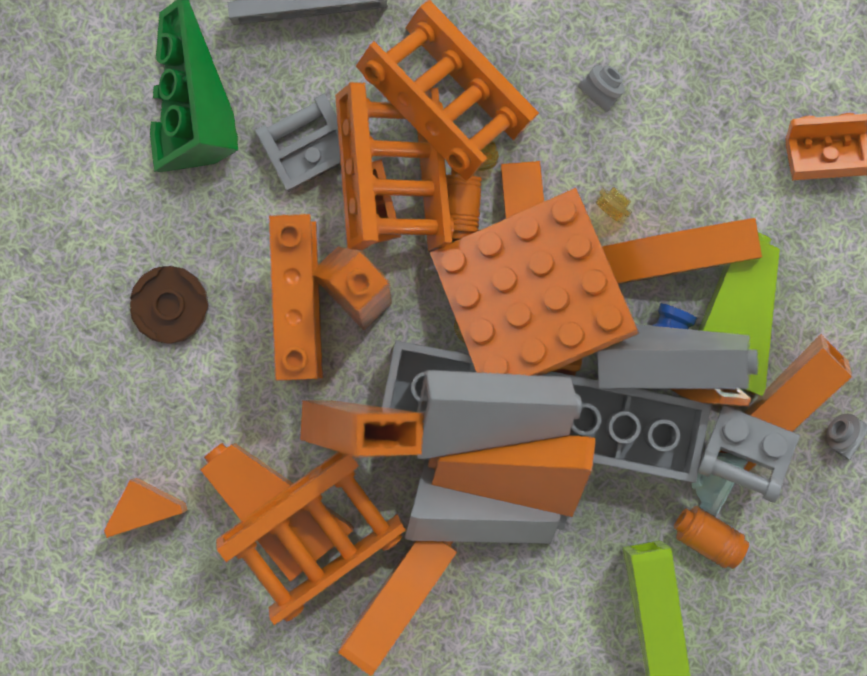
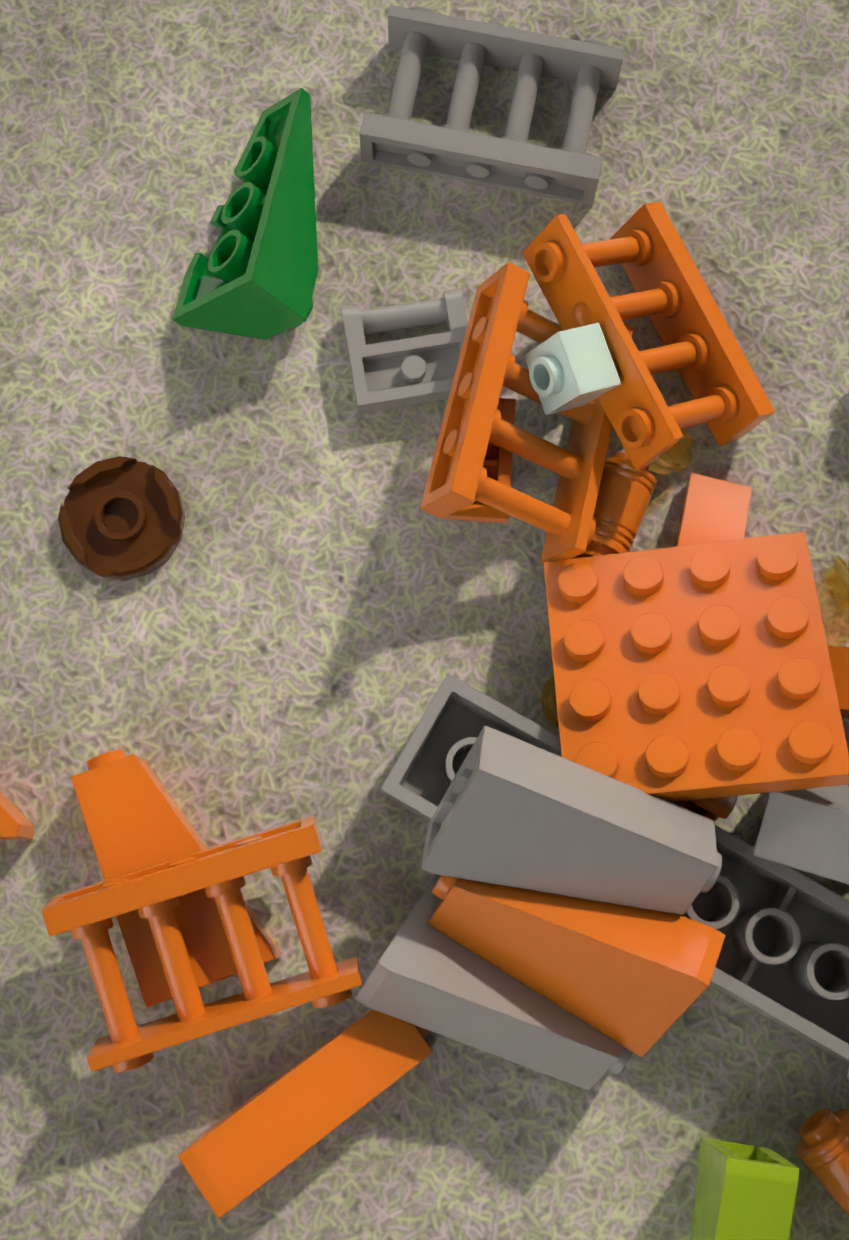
camera: 20 degrees right, 10 degrees down
(295, 297) = (313, 558): orange fence -> none
(354, 285) = (416, 567): orange slope -> none
(361, 428) = (352, 790): orange slope -> none
(409, 135) = (571, 368): none -> light aqua plate

